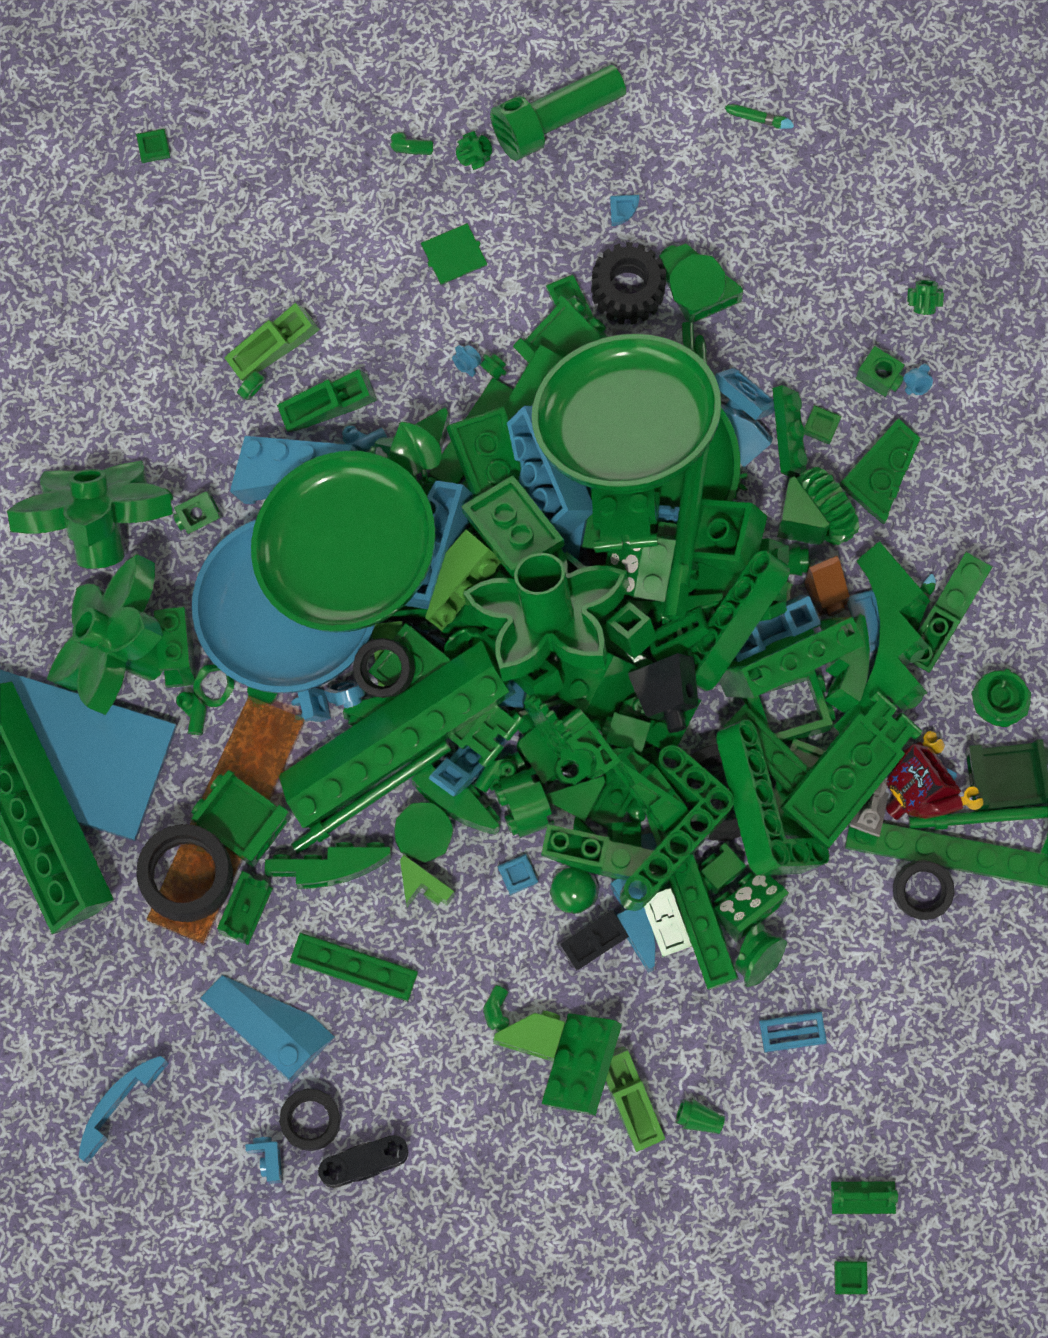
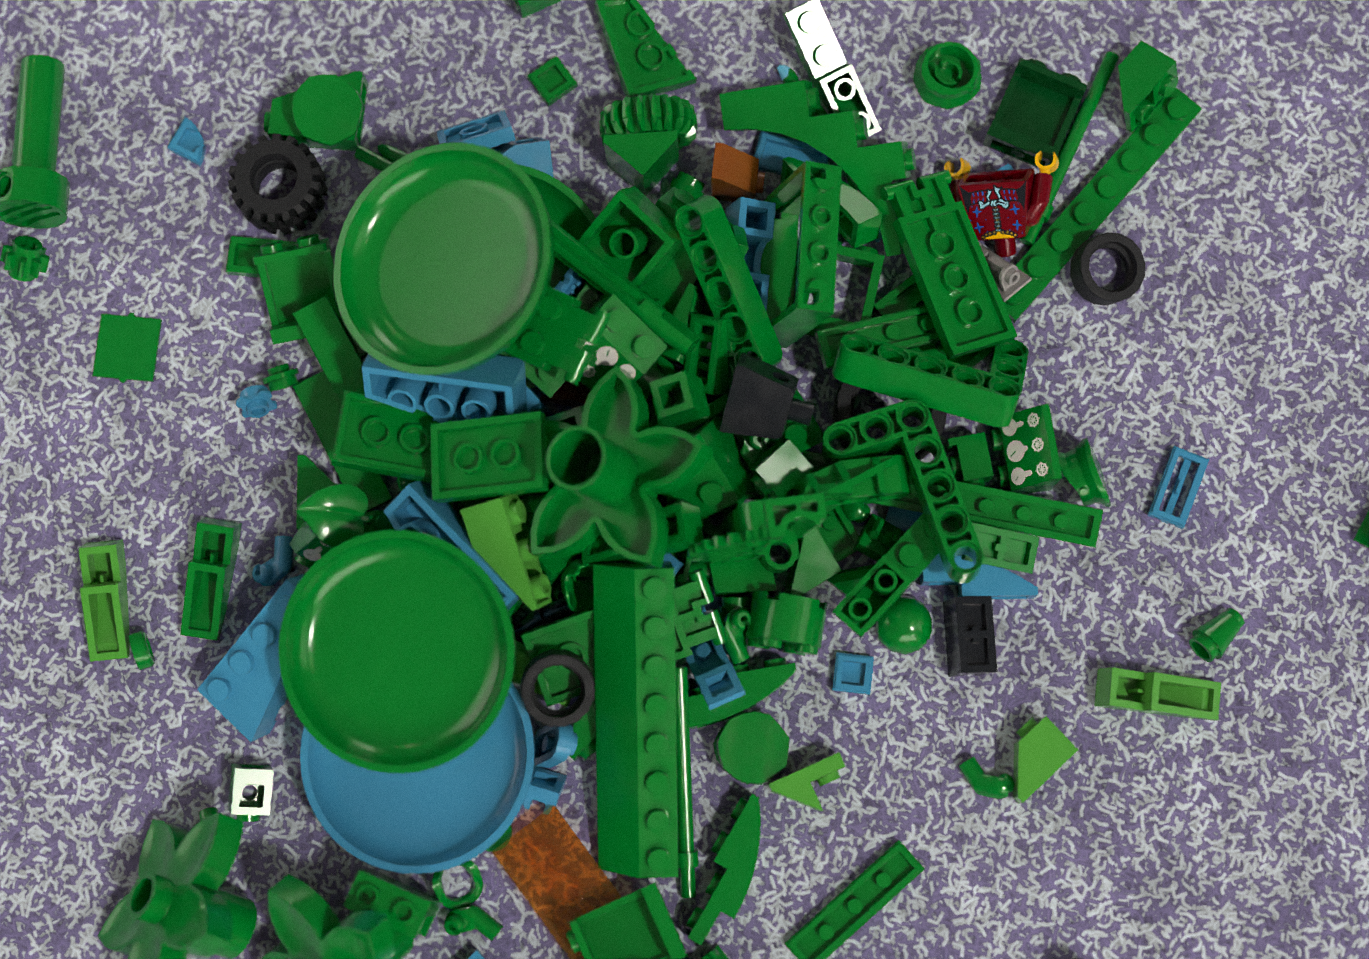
camera: 55 degrees left, 5 degrees up
(581, 1064) = (1100, 723): green plate -> none
(789, 431) = (542, 116): green plate -> none

